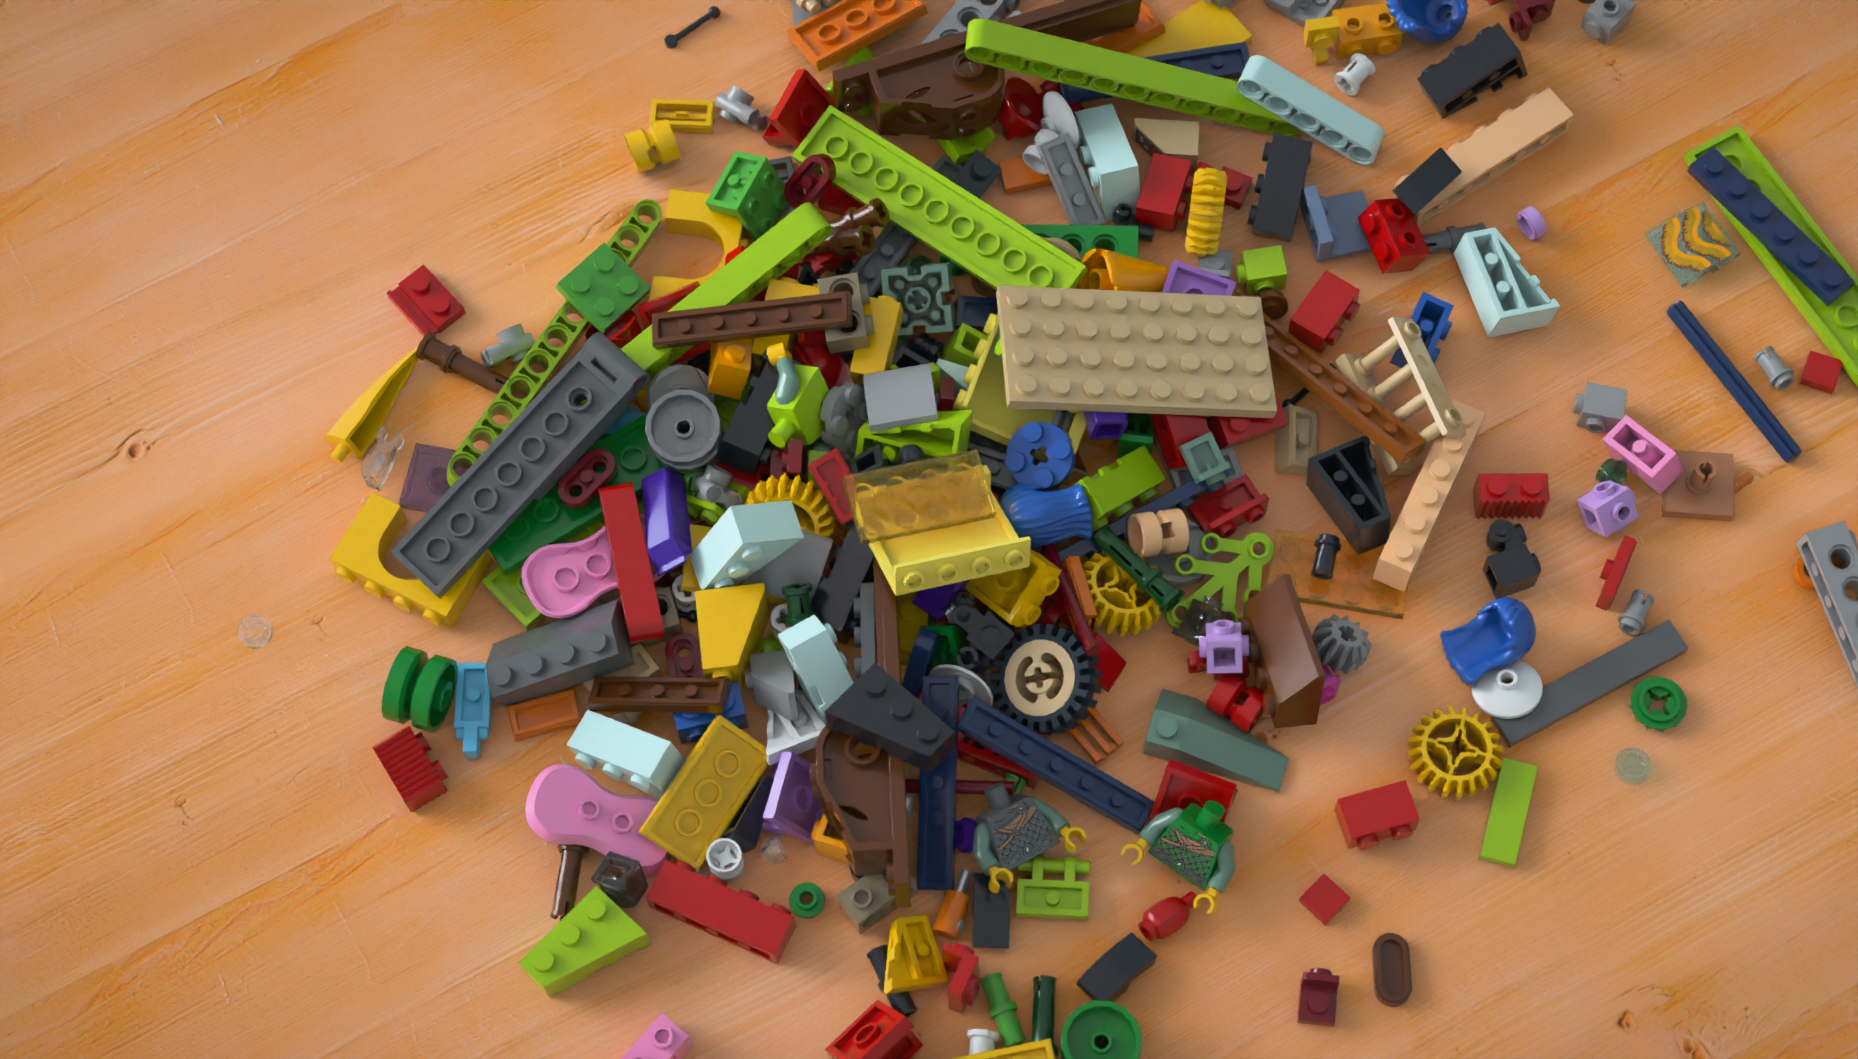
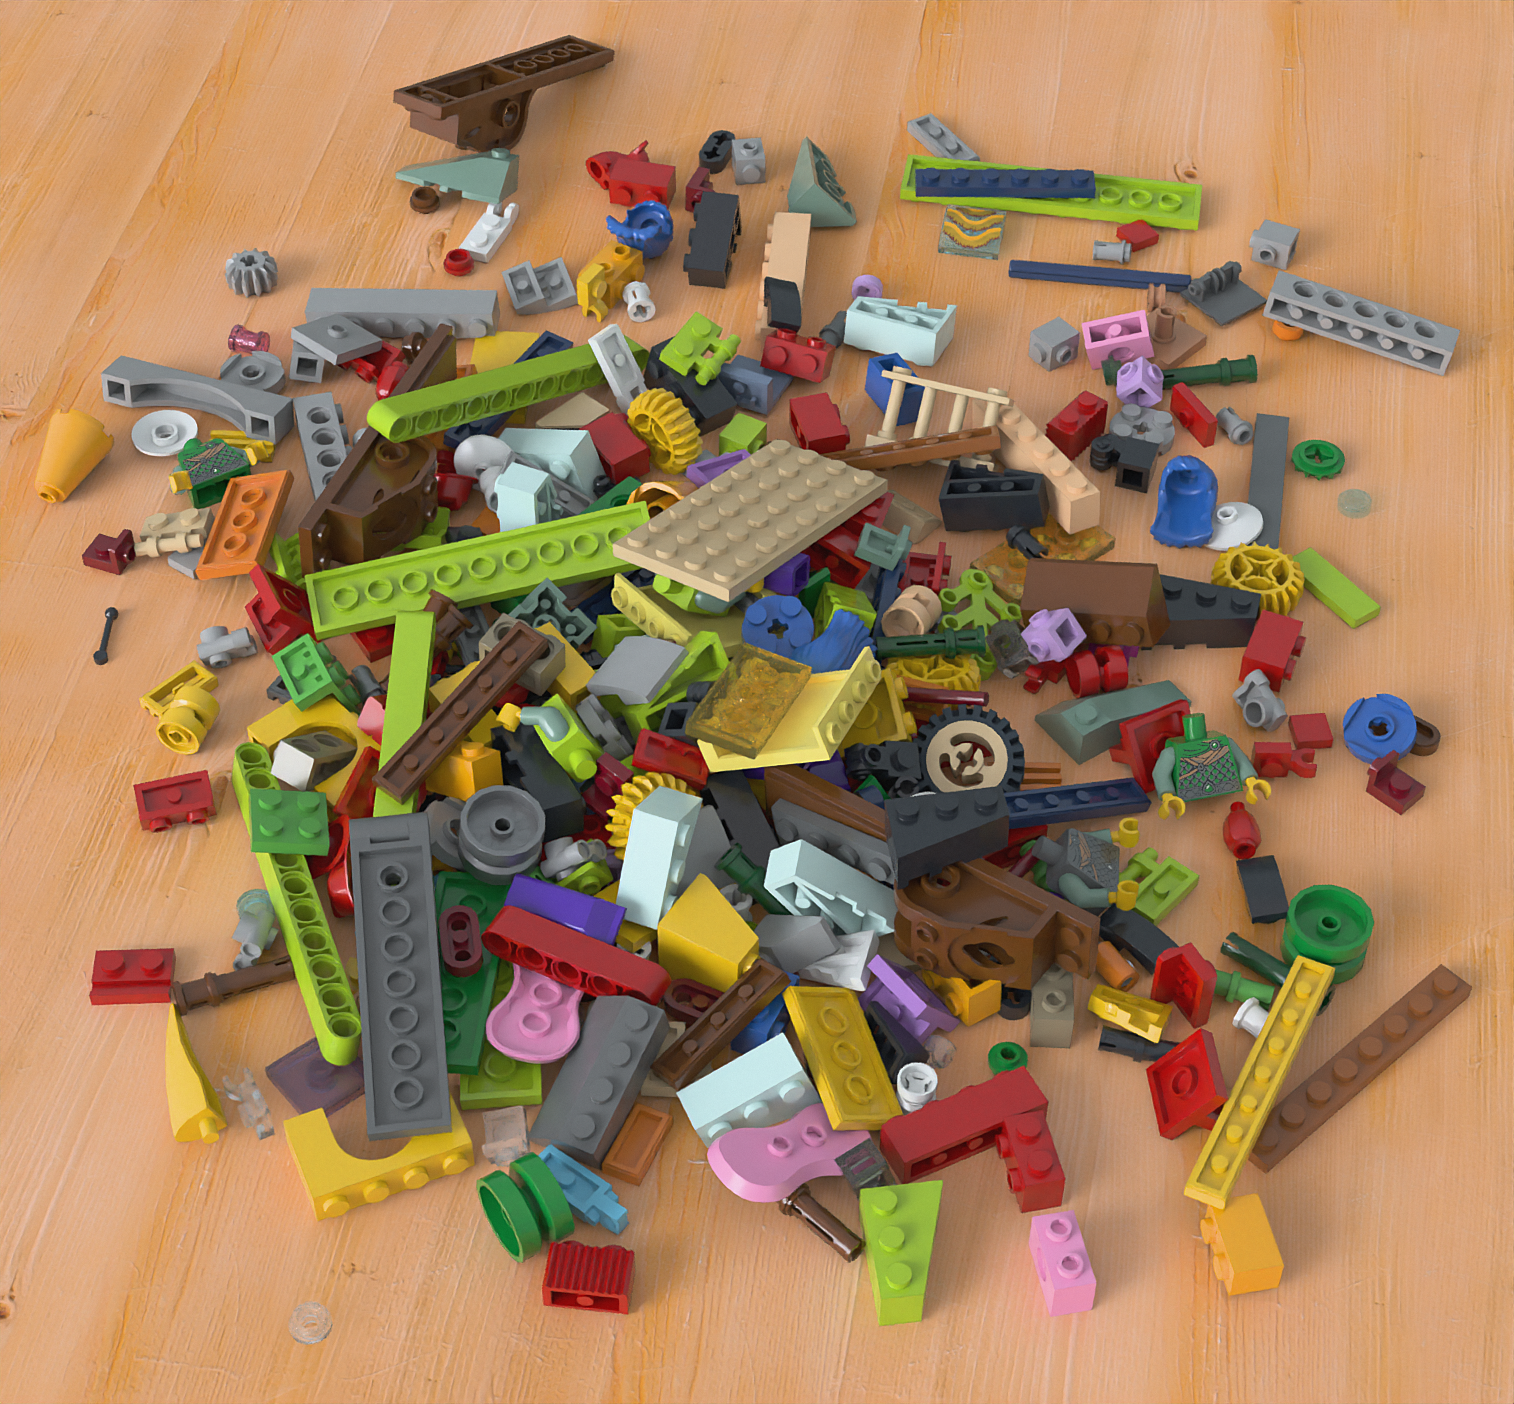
camera: 55 degrees left, 20 degrees down
(477, 632) = (506, 1135): none -> clear bracket
(537, 321) = (254, 901): none -> clear light blue tile
(579, 200) = (175, 801): none -> red bracket
(676, 253) = (311, 759): none -> dark tan brick
(722, 978) = (1031, 1161): none -> red brick
(811, 178) = (355, 632): dark red plate -> none
(1027, 191) = (525, 498): none -> light aqua wedge
(1243, 125) = (618, 365): none -> white hinge
(1260, 893) = (1277, 758): none -> red plate
(1305, 158) = (692, 343): none -> lime plate
(1310, 110) = (639, 326): light aqua beam -> none
(1313, 849) = (1259, 702): none -> light grey plate
(1370, 732) = (1207, 614): none -> black wedge
(1377, 965) = (1373, 711): none -> blue plate
(1569, 529) = (1155, 425): none -> light grey plate
(1621, 95) = (817, 191): none -> sand green wedge
(1695, 559) = (1222, 372): none -> dark green pin
(1743, 443) = (1155, 296): none -> nougat bush
(1794, 136) = (939, 139): none -> light grey tile
(1803, 494) = (1223, 294): none -> dark grey hinge

